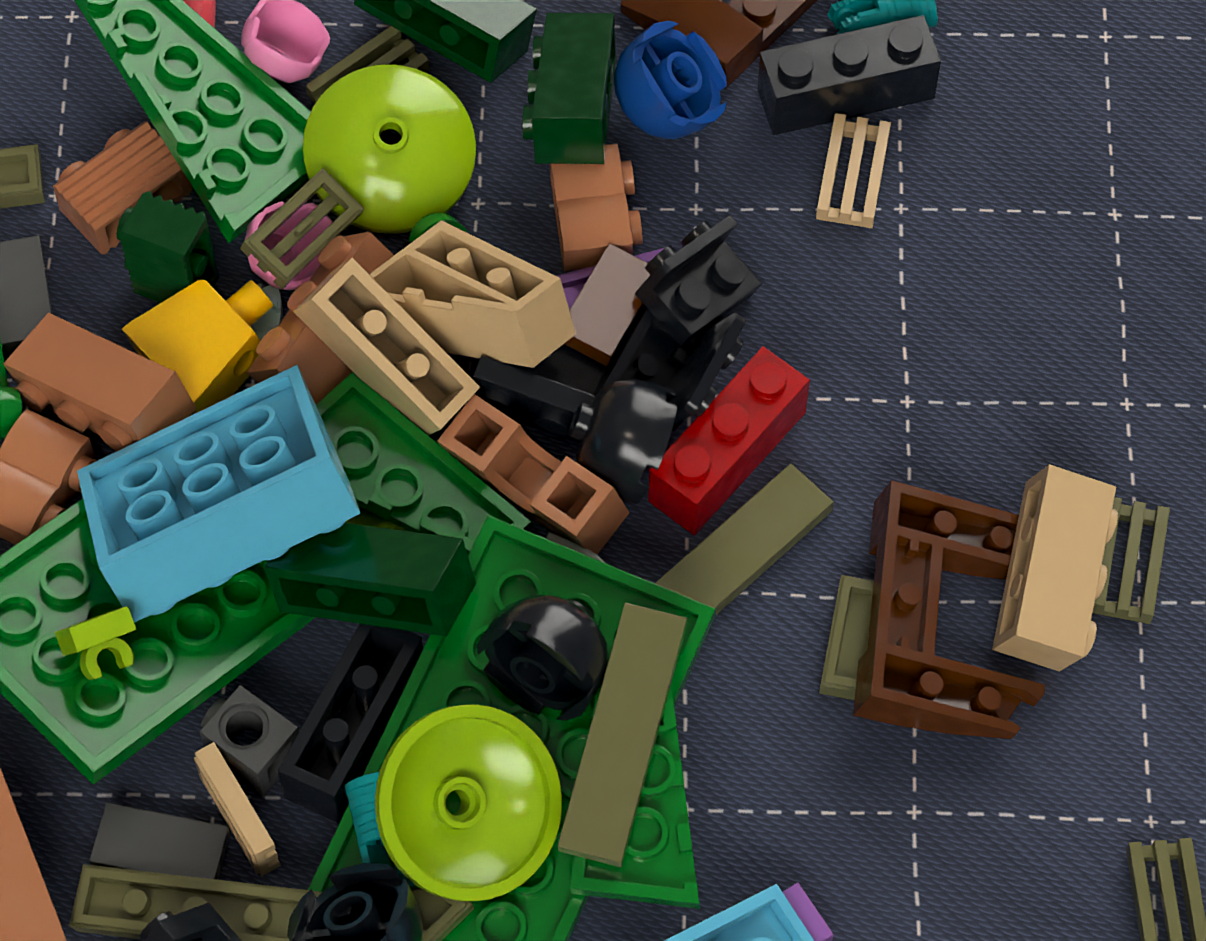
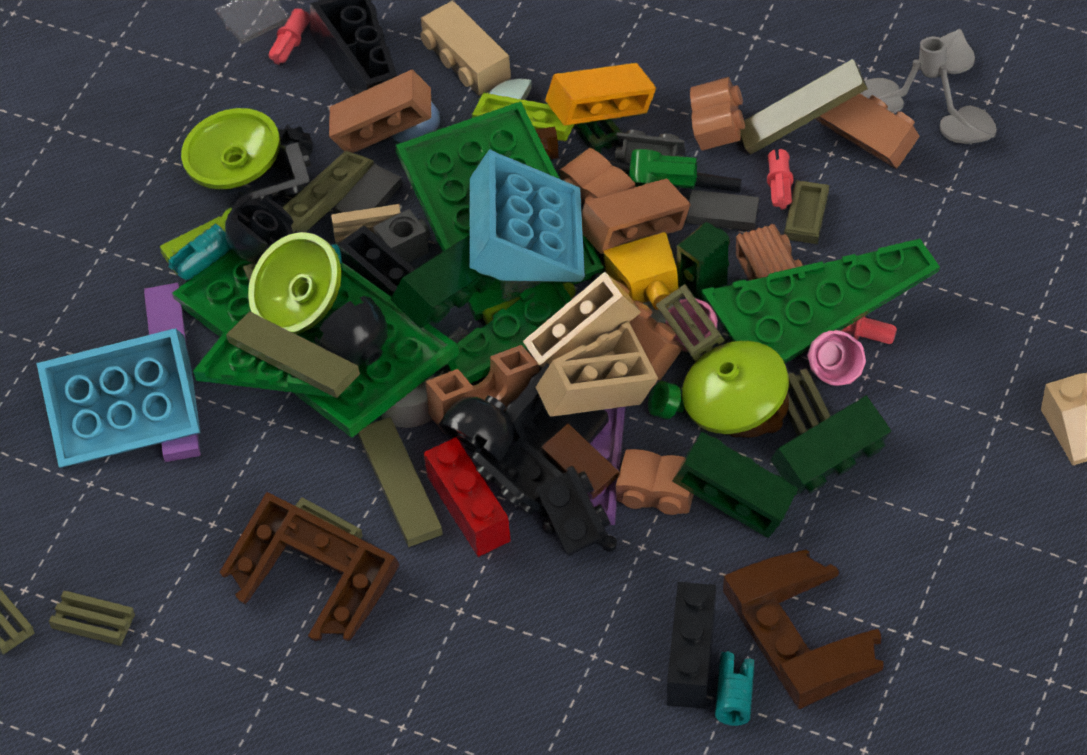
camera: 115 degrees right, 10 degrees down
(98, 634) = (466, 155): lime tile -> none
(669, 82) = (717, 536): blue cylinder -> none
(859, 132) = (631, 628): tan tile -> none
(1056, 569) = (302, 625): tan brick -> none
(1137, 516) = (274, 665): olive tile -> none

